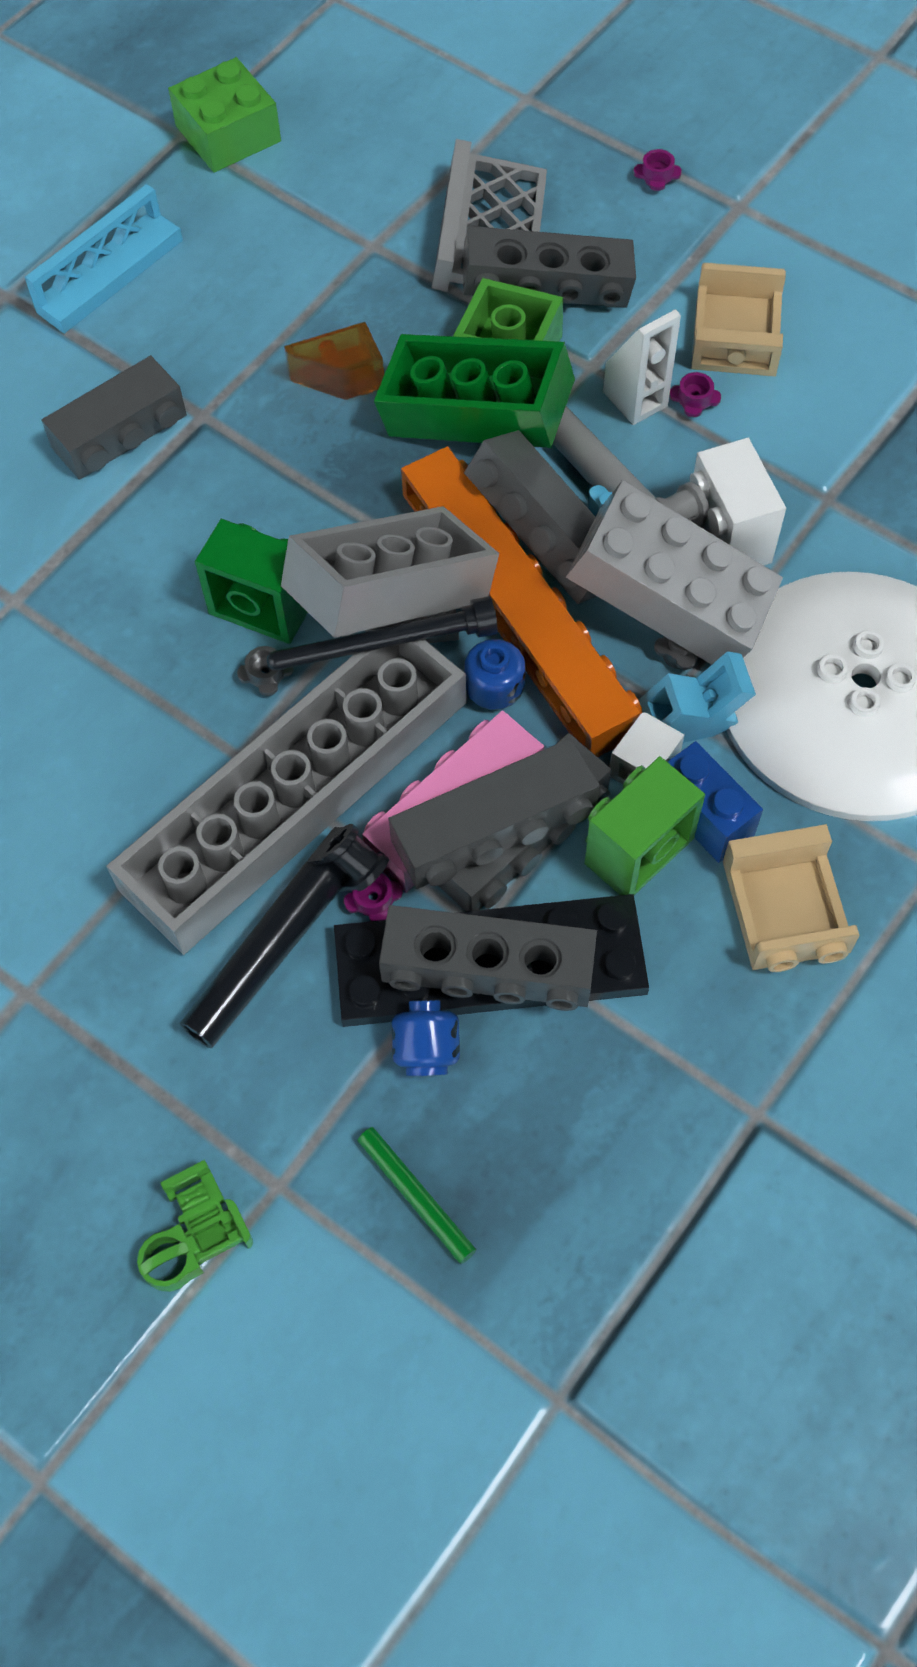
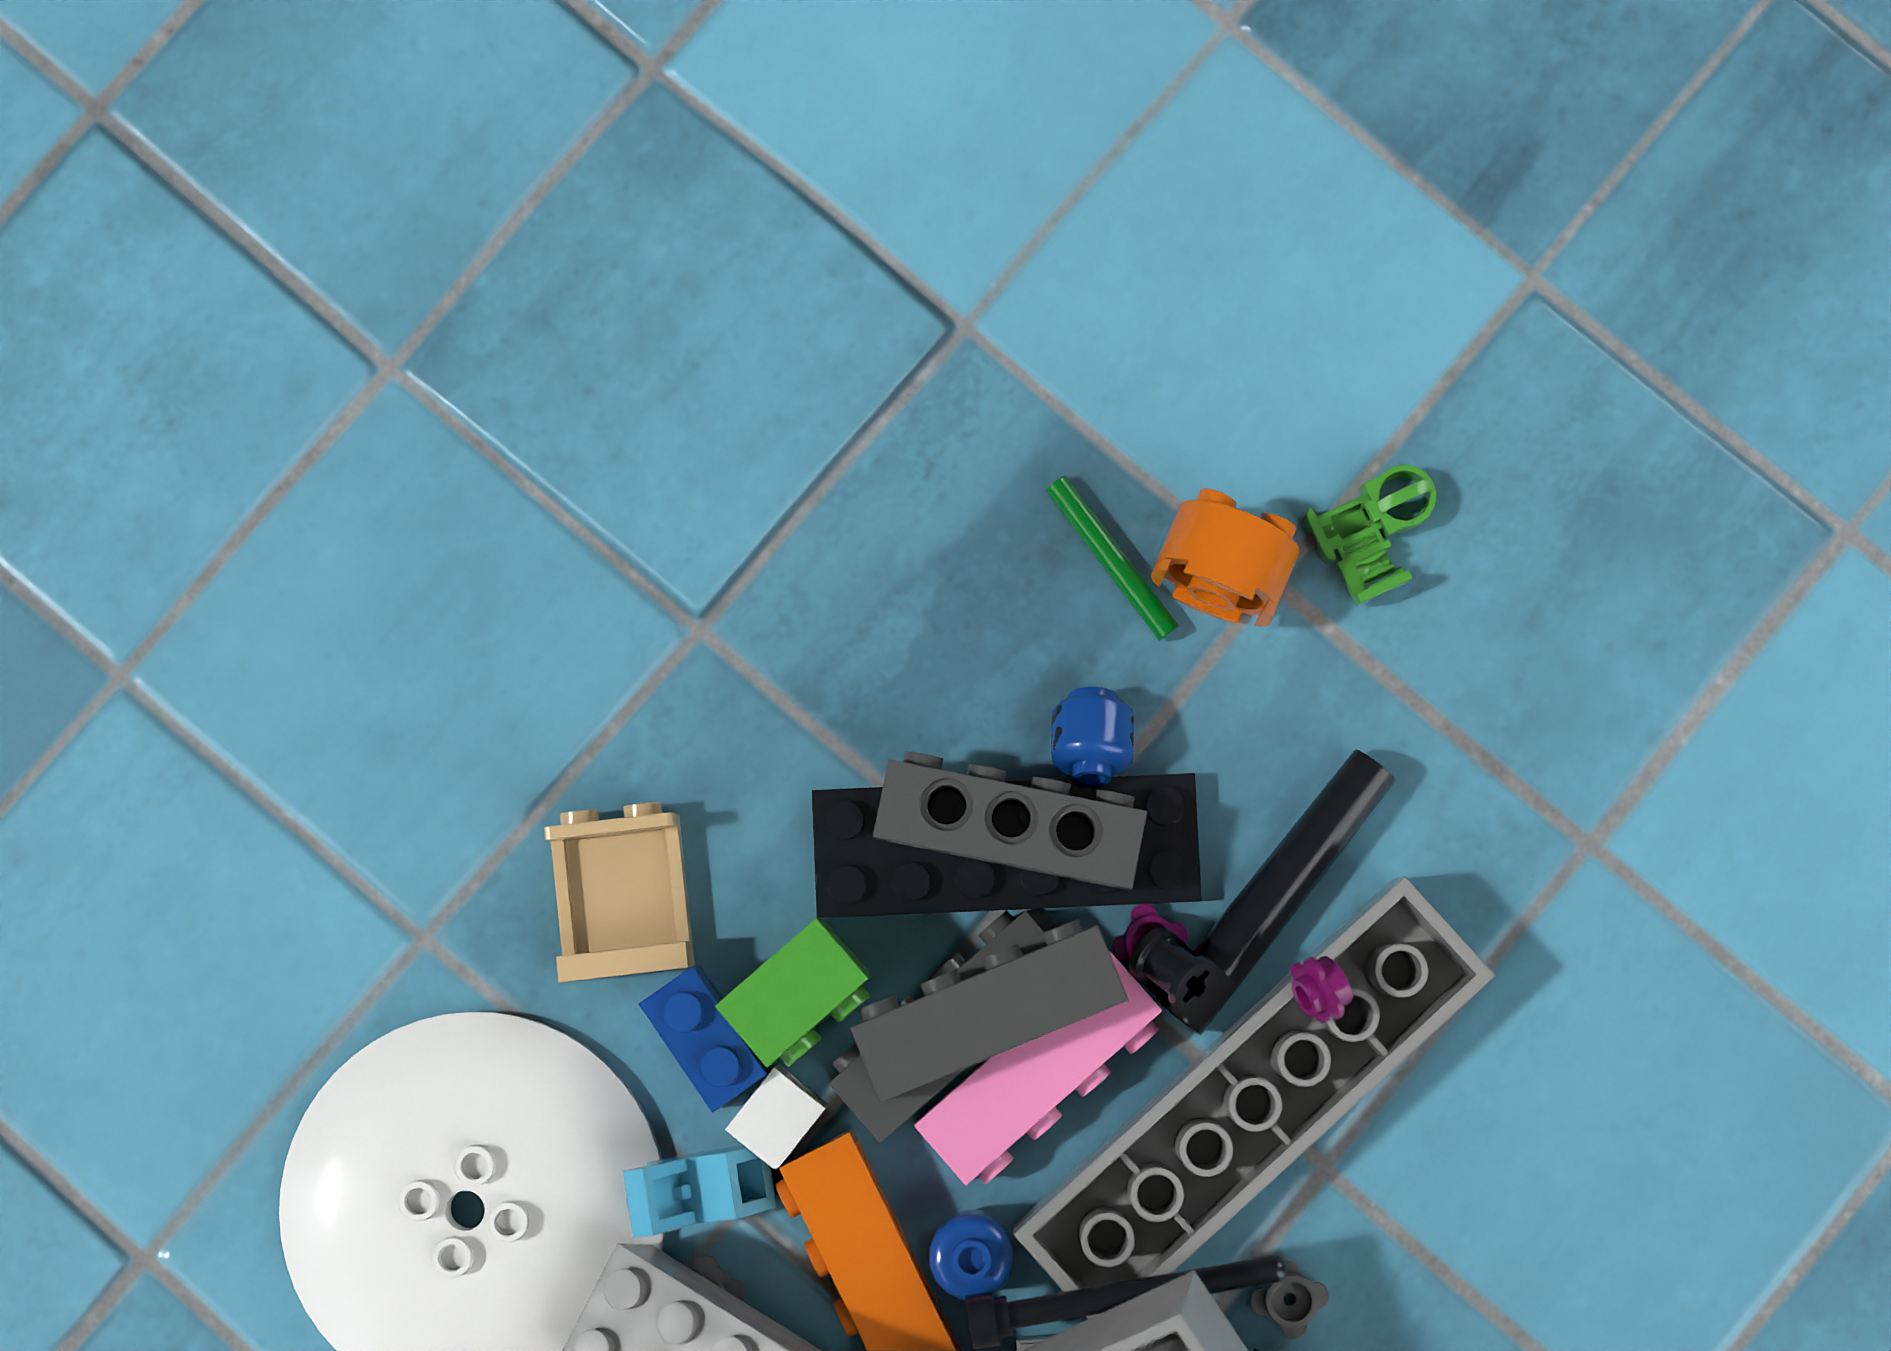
camera: 170 degrees left, 20 degrees up
(240, 838) = (1320, 988): none -> magenta plate
(319, 1181) = (1227, 558): none -> orange brick

